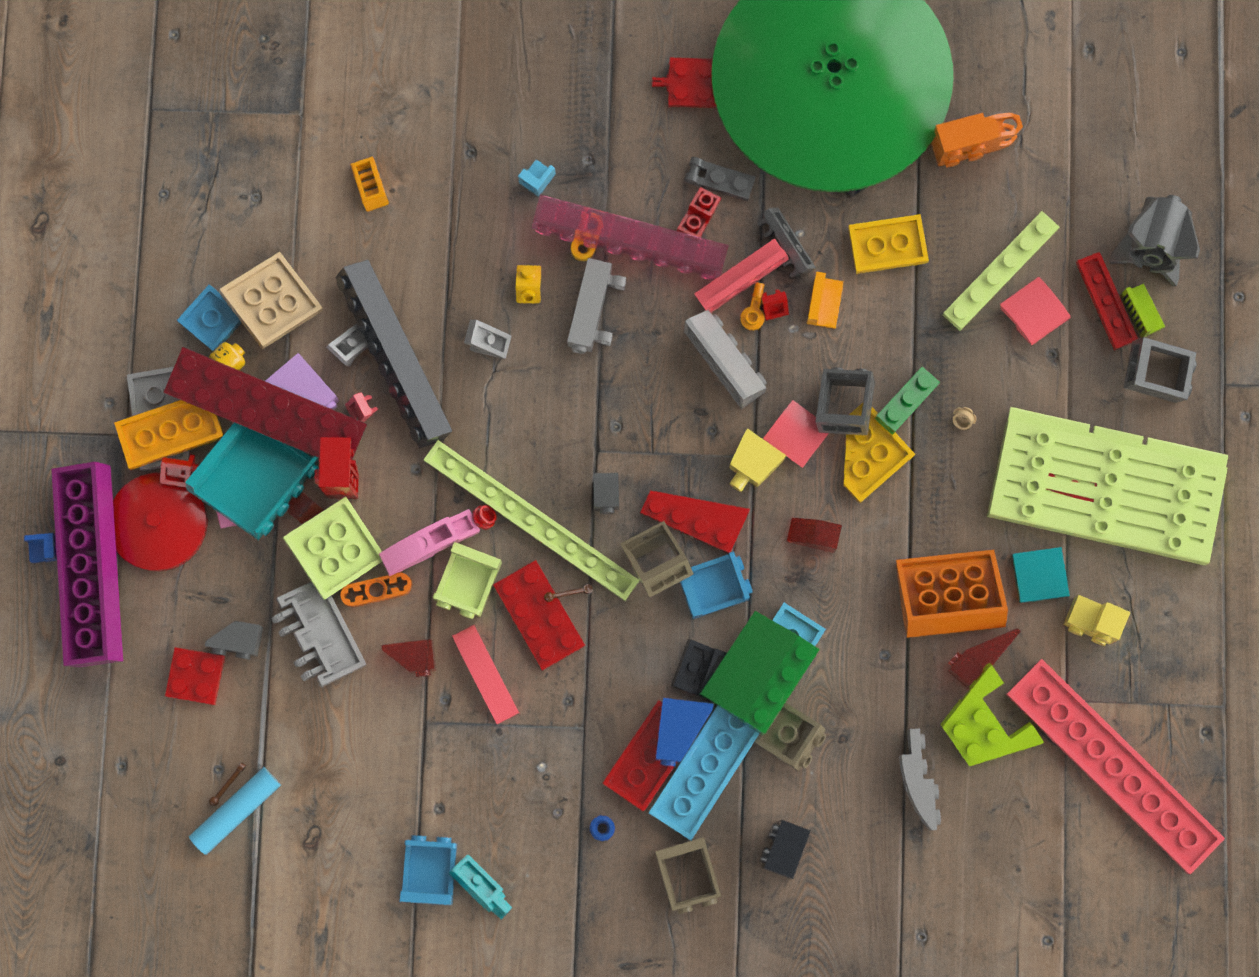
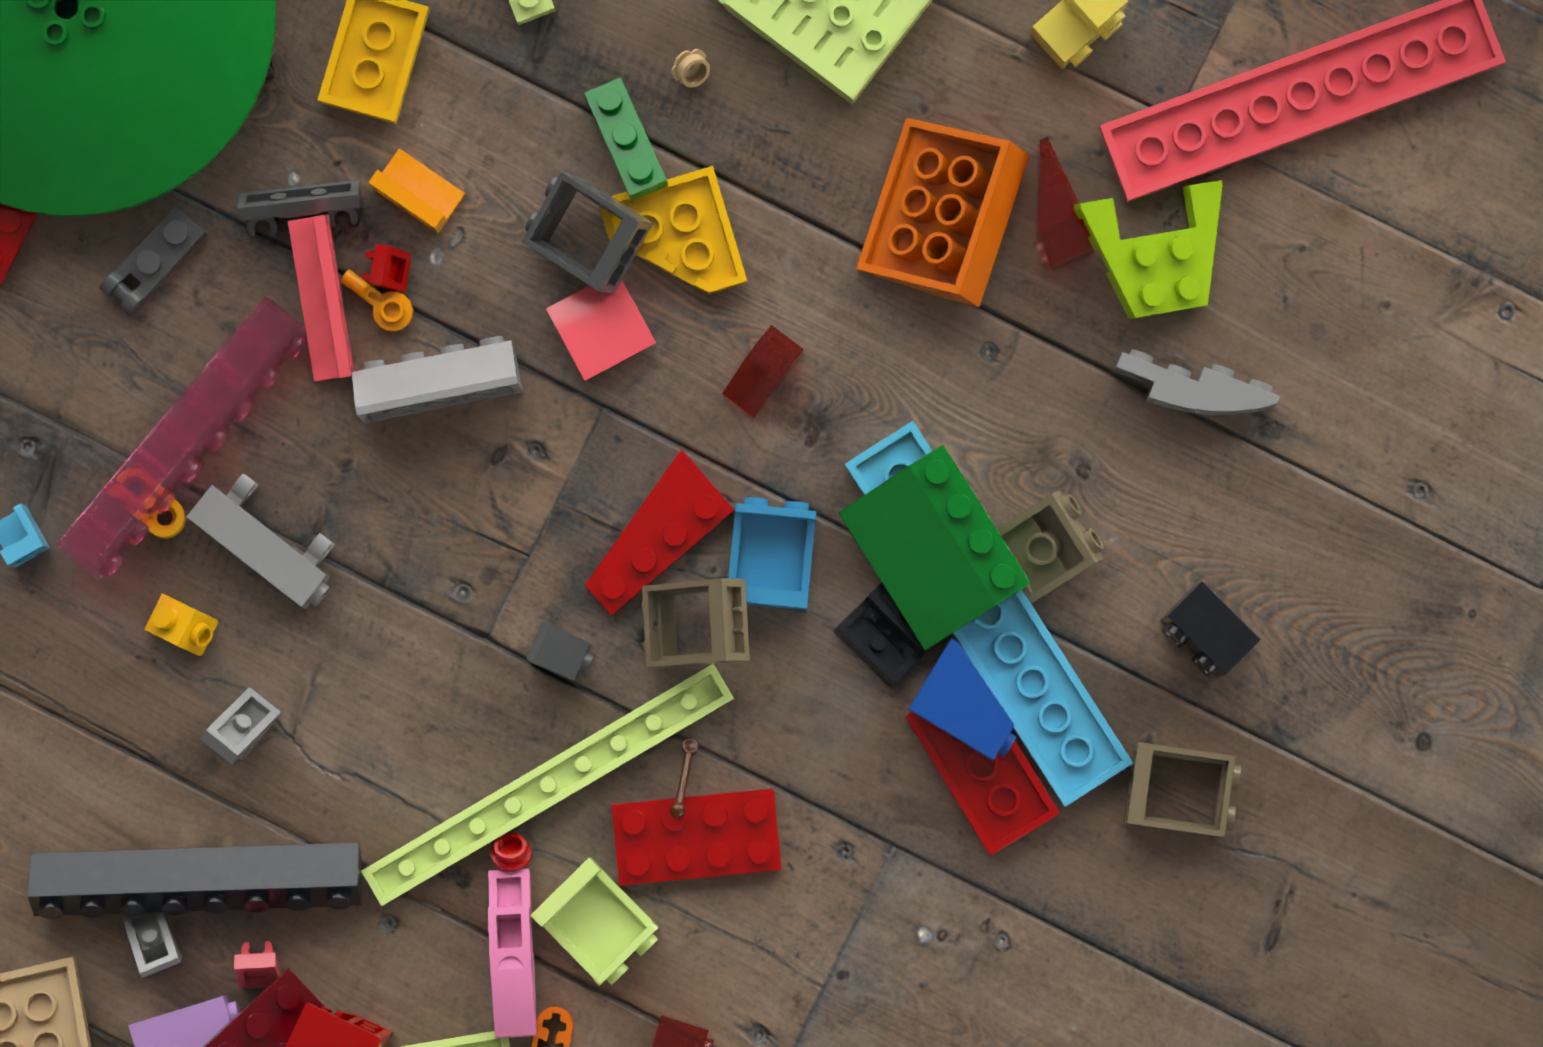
camera: 65 degrees left, 5 degrees up
(485, 674) = (748, 957): coral slope -> none
(602, 836) = (1064, 895): blue plate -> none
(699, 213) = (193, 317): red slope -> none
(754, 461) = (612, 410): light yellow torso -> none
(1040, 575) = (975, 67): teal tile -> none

